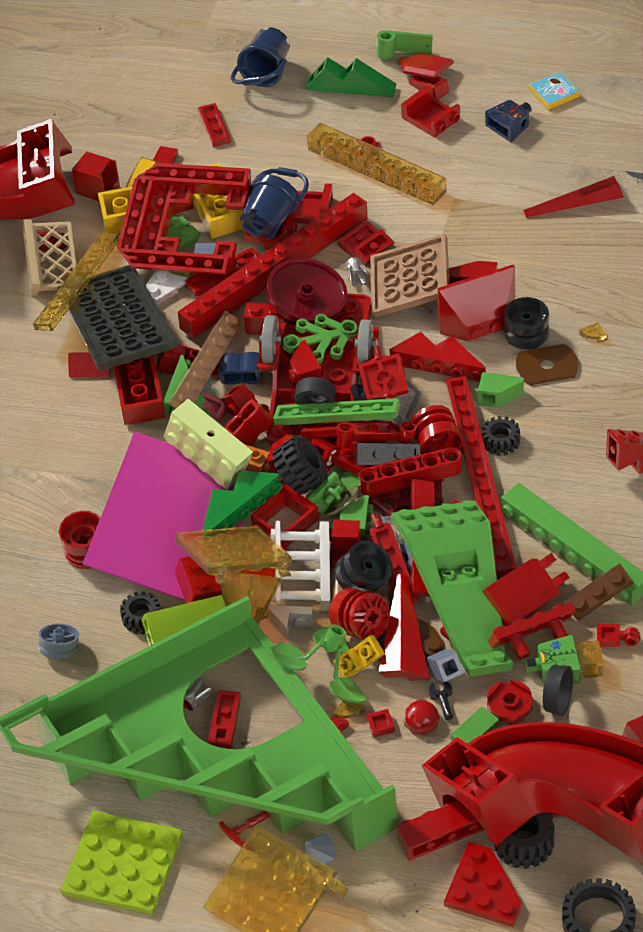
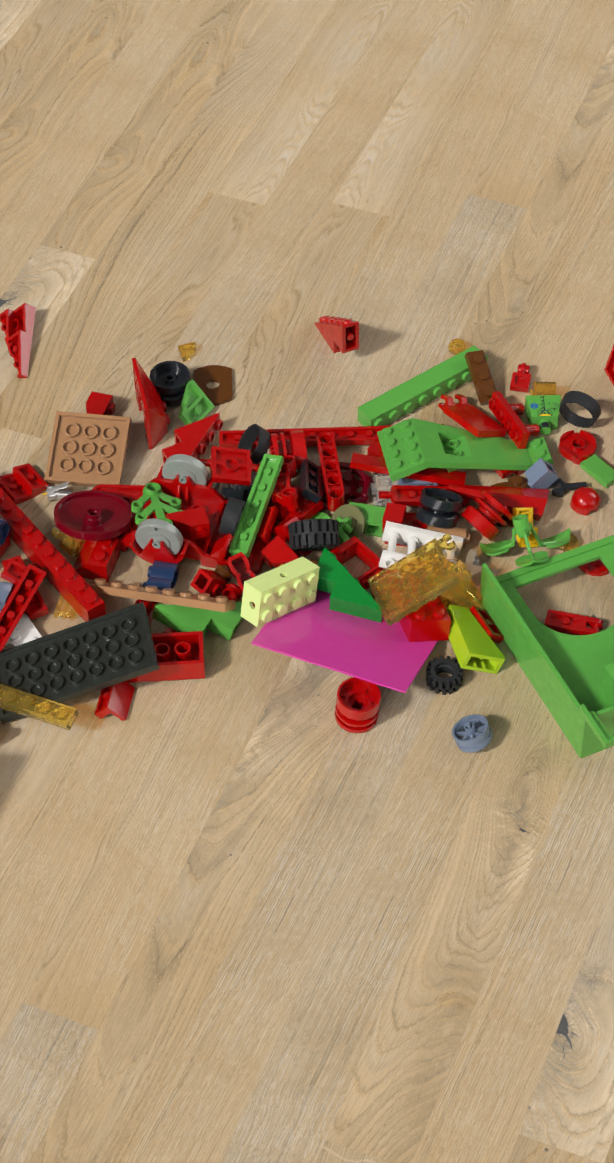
camera: 85 degrees left, 0 degrees up
(276, 400) = (221, 547): none -> red slope
(380, 723) = (586, 527): red tile -> none
(442, 397) = (248, 439): none -> black tyre
(498, 349) = (194, 404): none -> bright green wing
(499, 389) = (238, 414): bright green slope -> none
(501, 444) = (292, 411): black tyre -> none

